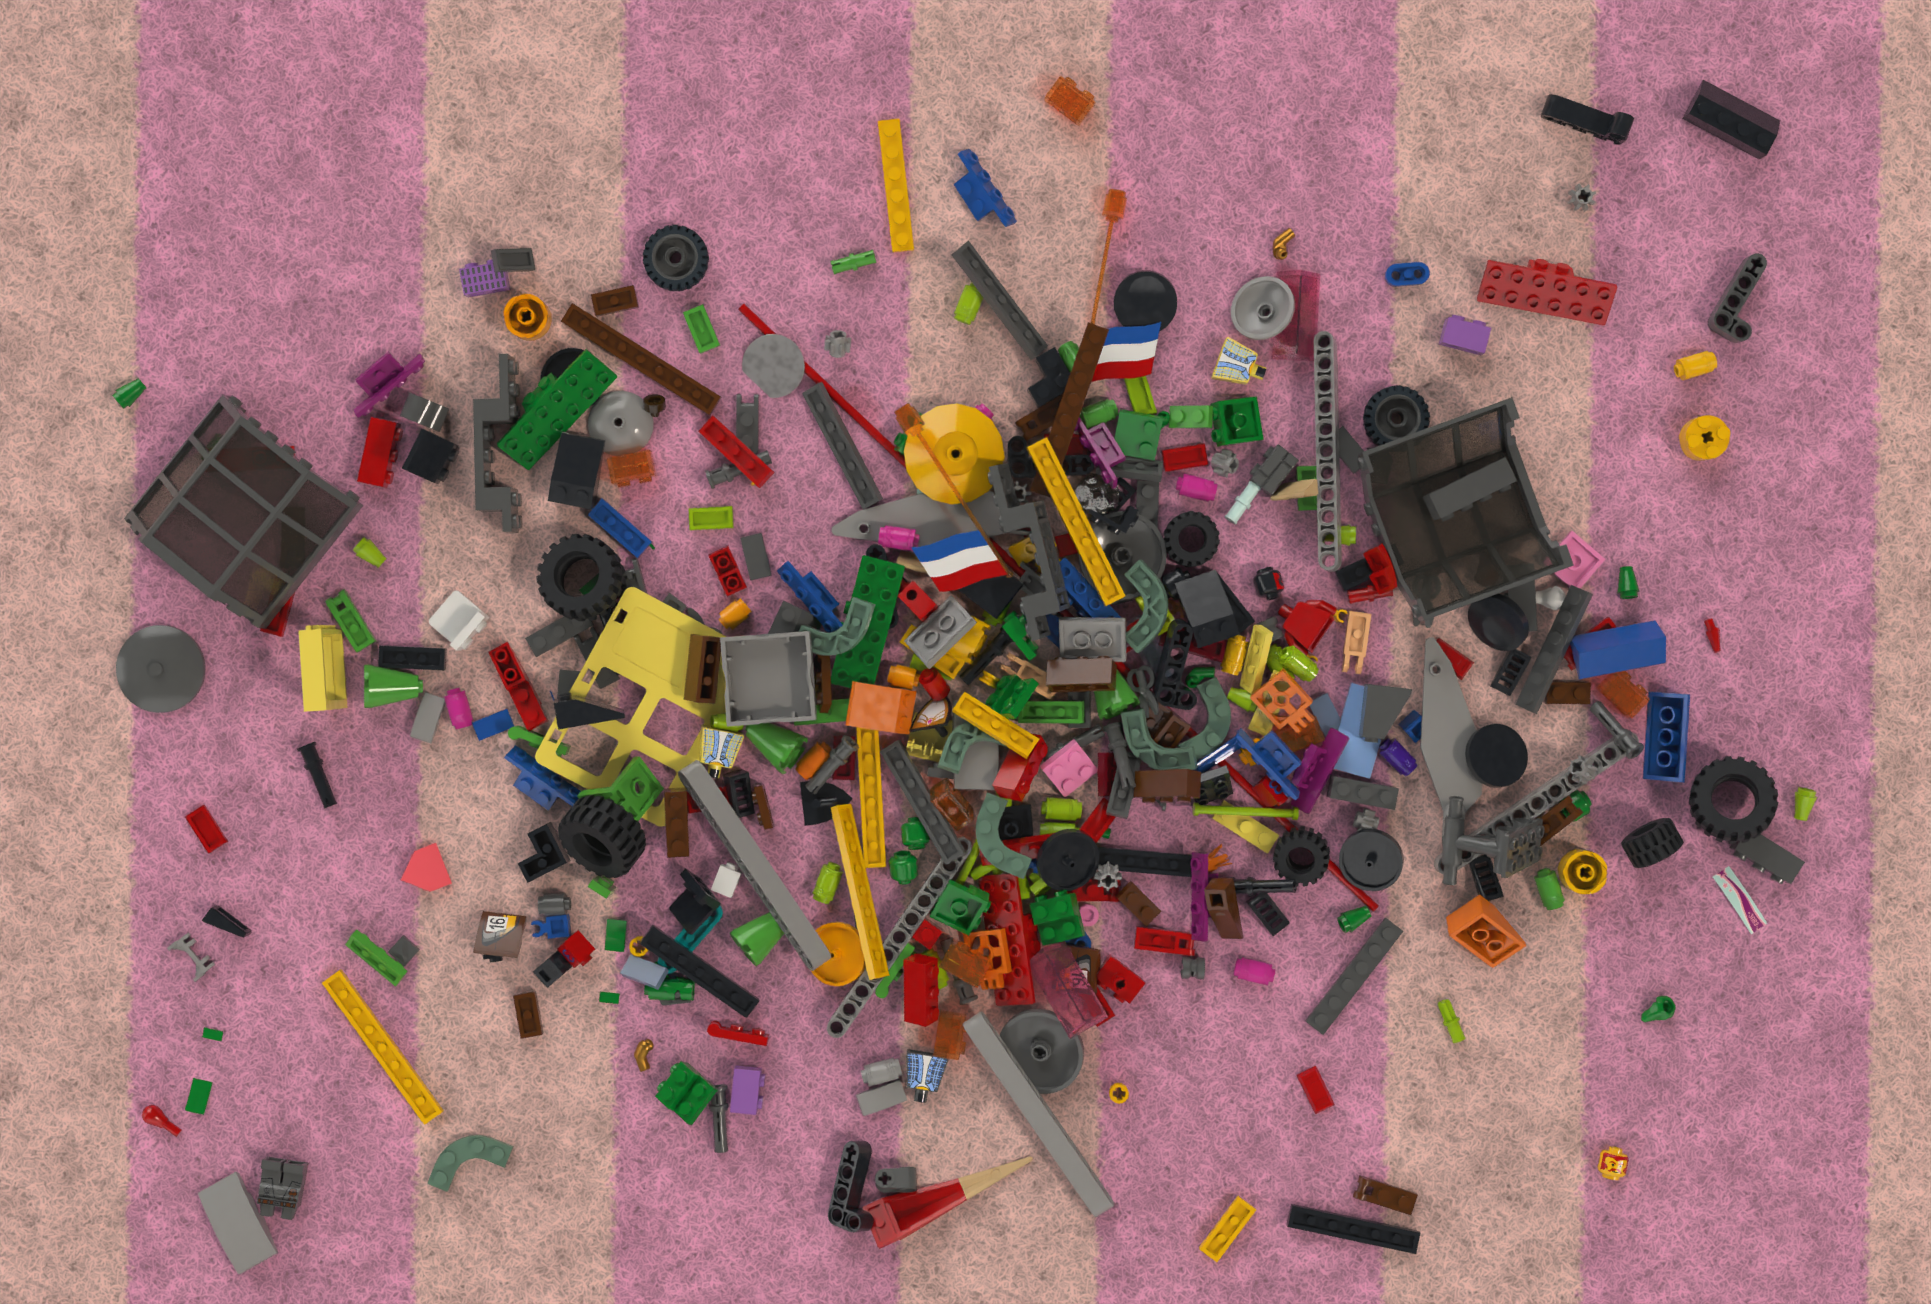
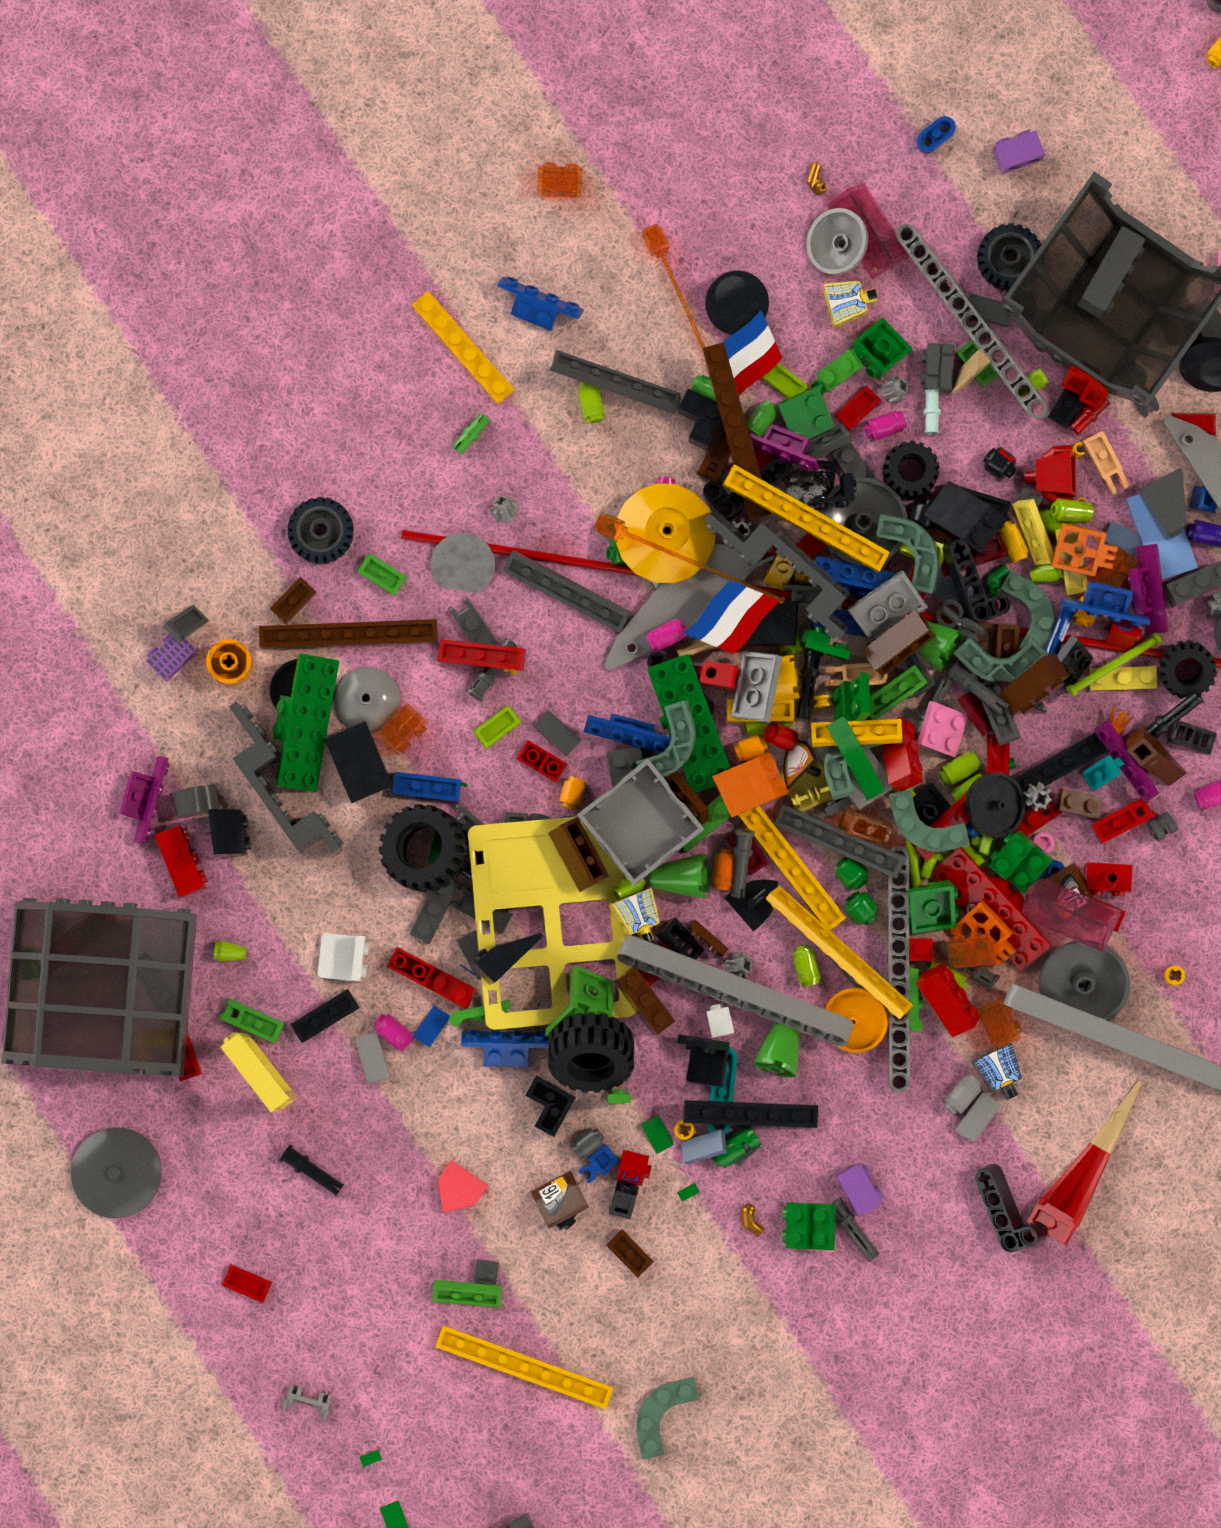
camera: 35 degrees left, 5 degrees down
(222, 919) = (314, 1351): black slope -> none
(389, 686) = (321, 1053): bright green cone -> none
(654, 404) = (385, 663): dark brown tile -> none
(736, 1033) = (816, 1146): red plate -> none
(772, 845) = (738, 964): none -> light grey gear
(900, 1180) = (1042, 1176): dark grey piece -> none
(979, 746) = (855, 758): none -> green sticker
(1174, 892) = (1102, 772): none -> teal plate
(1547, 290) = (1060, 70): red bracket -> none

